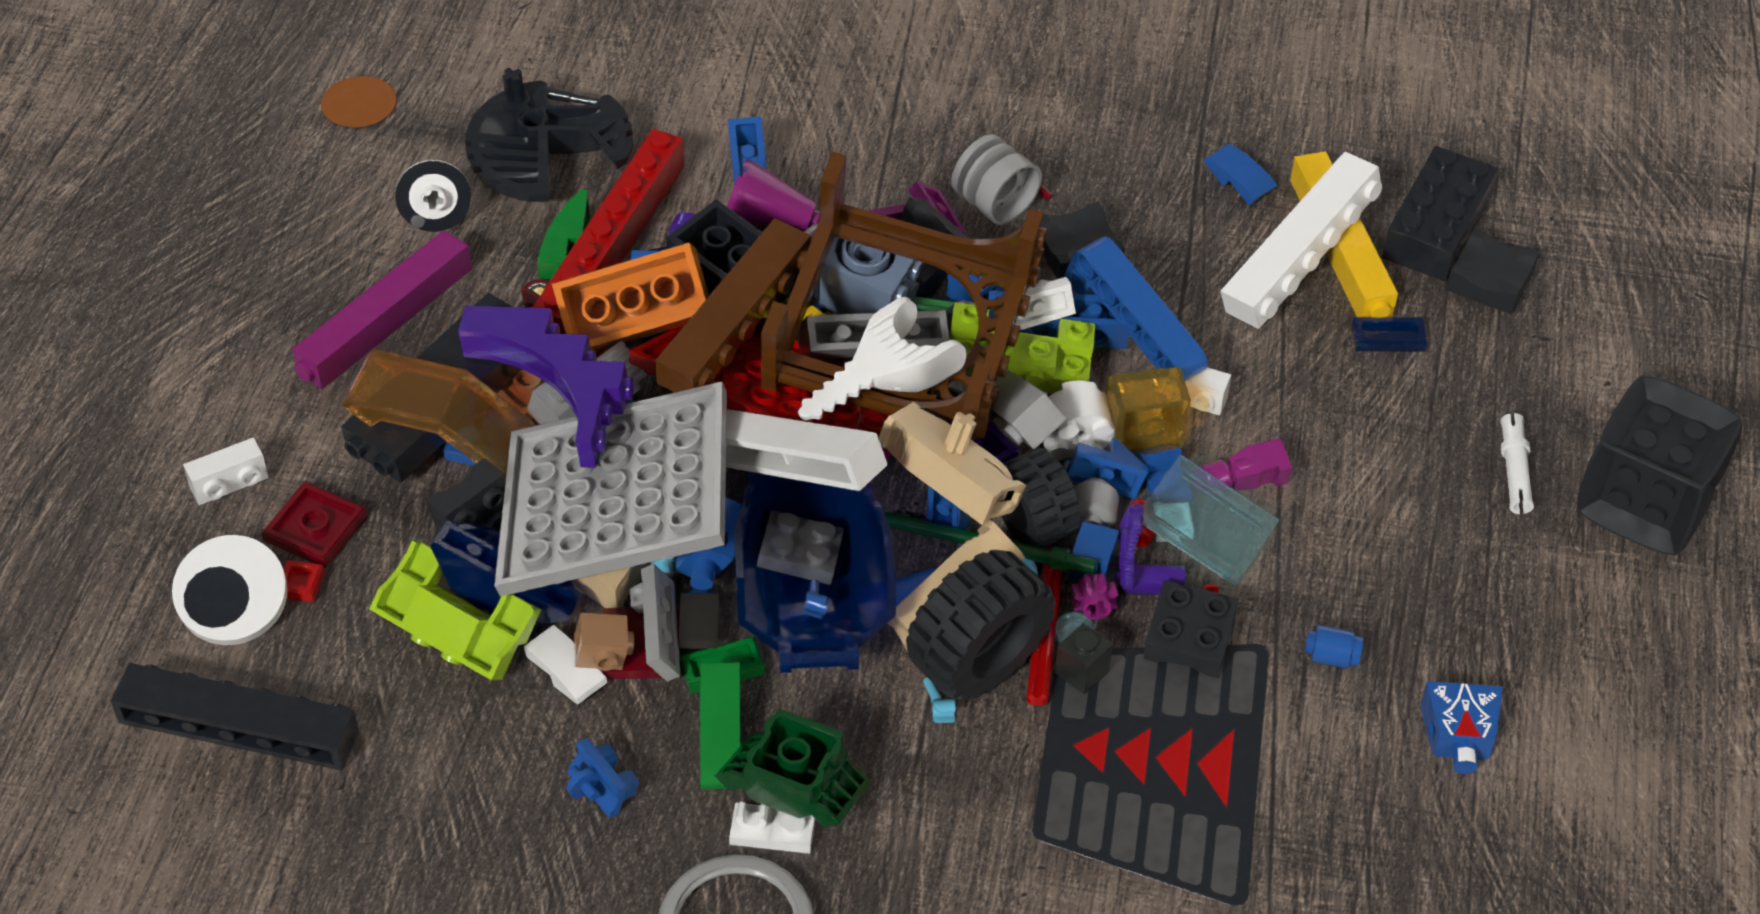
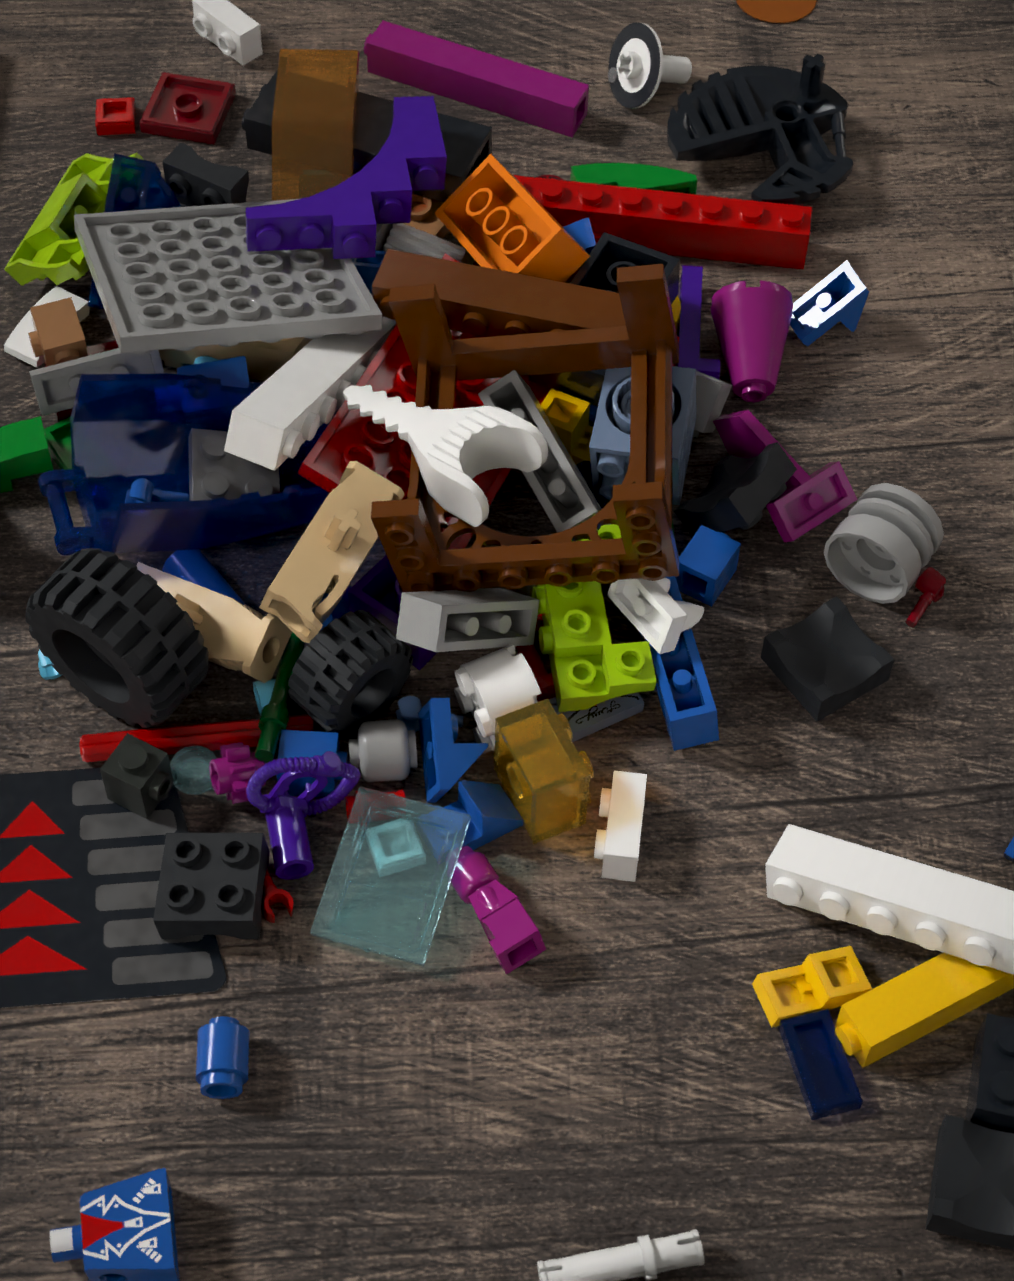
camera: 75 degrees right, 5 degrees up
(229, 590) = (79, 65): white piece -> none
(1108, 273) = (723, 665): blue beam -> none
(1332, 322) = (818, 984): none -> yellow slope

